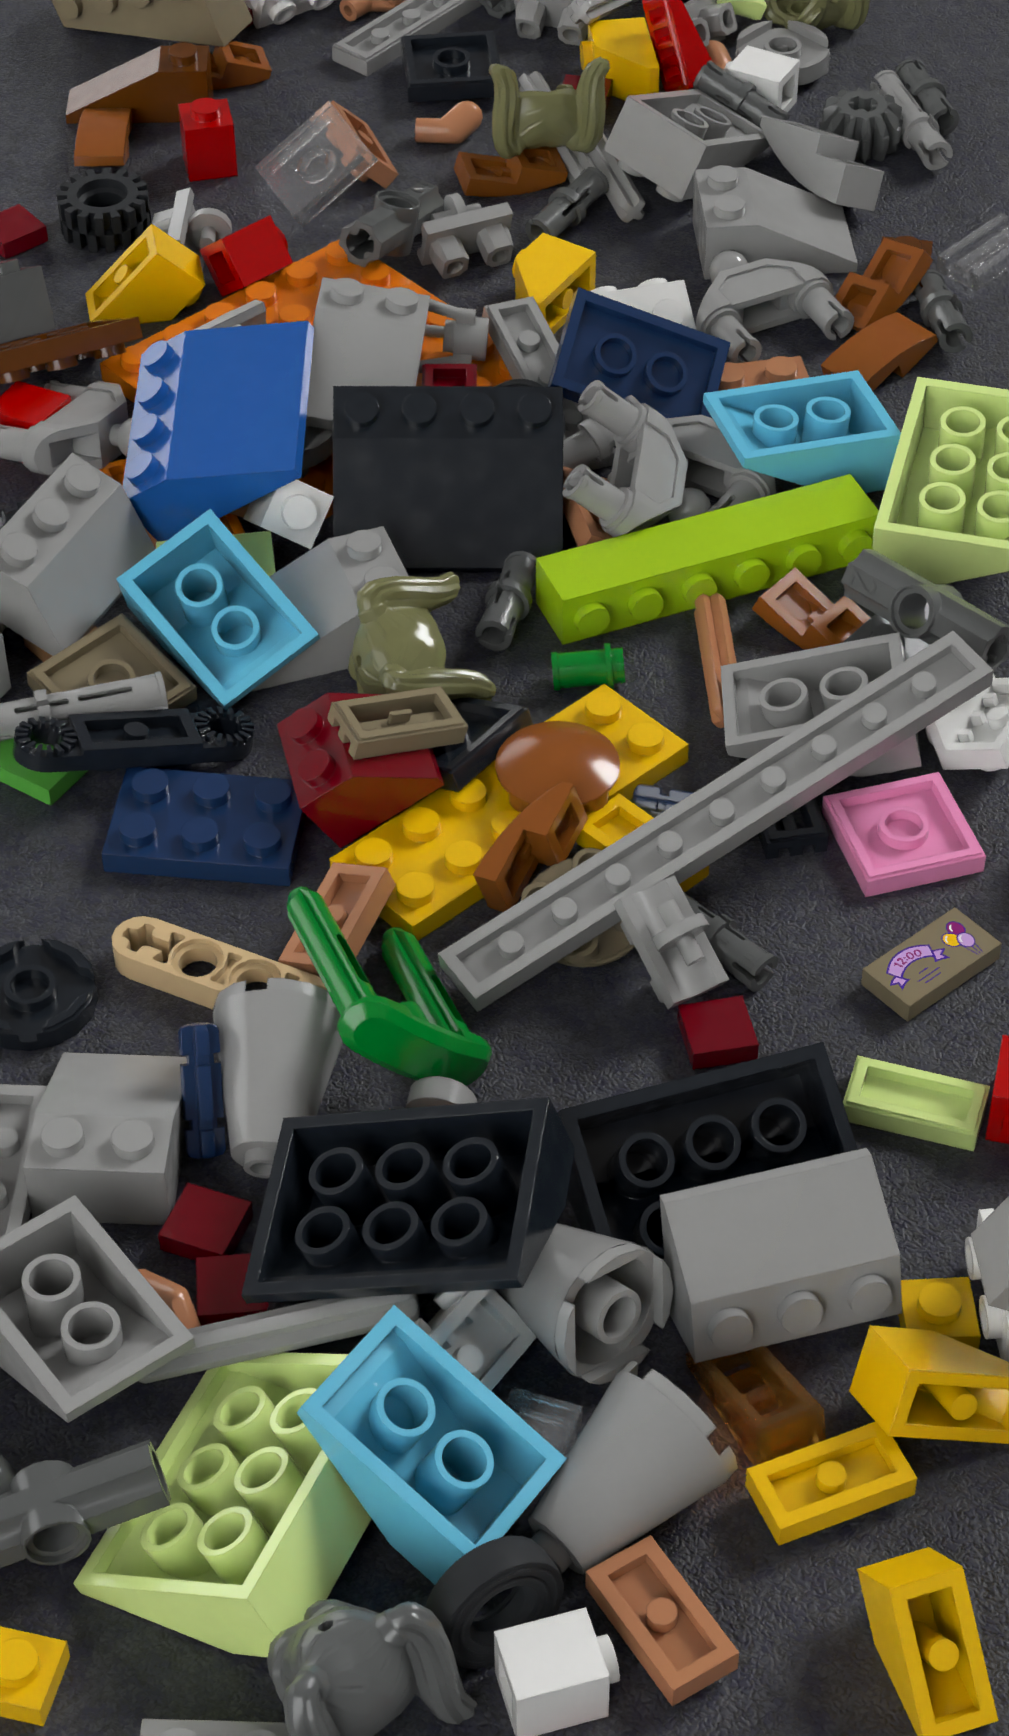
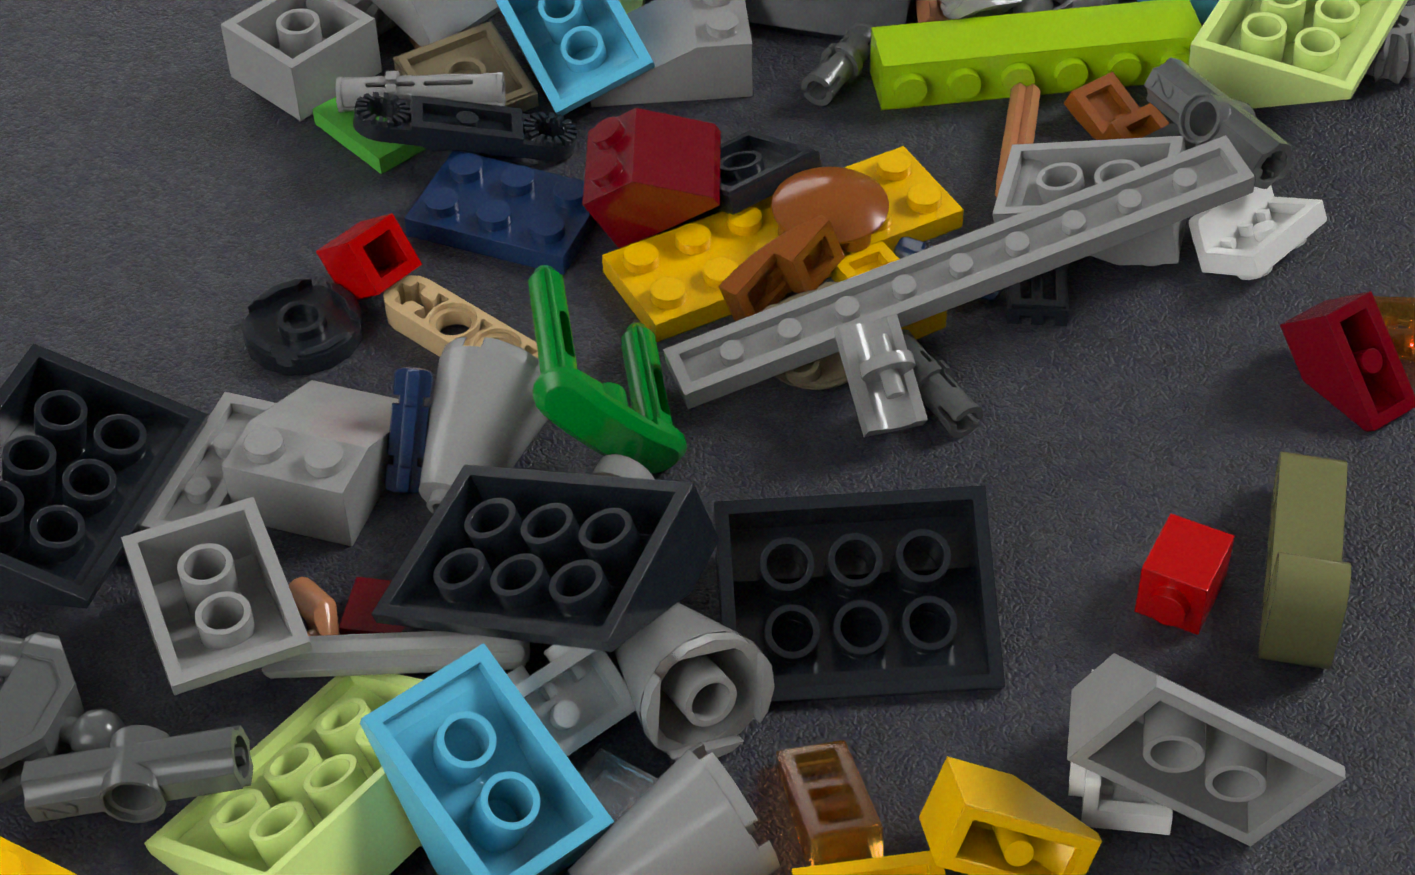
camera: 15 degrees right, 0 degrees up
(87, 905) = (369, 256): none -> red brick
(205, 1223) = (374, 548): dark red tile -> none
(355, 900) = (599, 300): nougat plate -> none
(396, 722) = (690, 142): dark tan tile -> none
(401, 643) = (724, 81): olive hair -> none
(588, 668) = (894, 130): green pin -> none
(717, 1032) = (905, 463): dark red tile -> none
(780, 1255) = (885, 674): light grey slope -> none
(903, 834) = (1143, 322): bright pink tile -> none
(916, 1103) = (1073, 564): yellowish green tile -> none
(931, 964) = (1131, 441): dark tan tile -> none
(941, 1306) = (1035, 758): yellow plate -> none

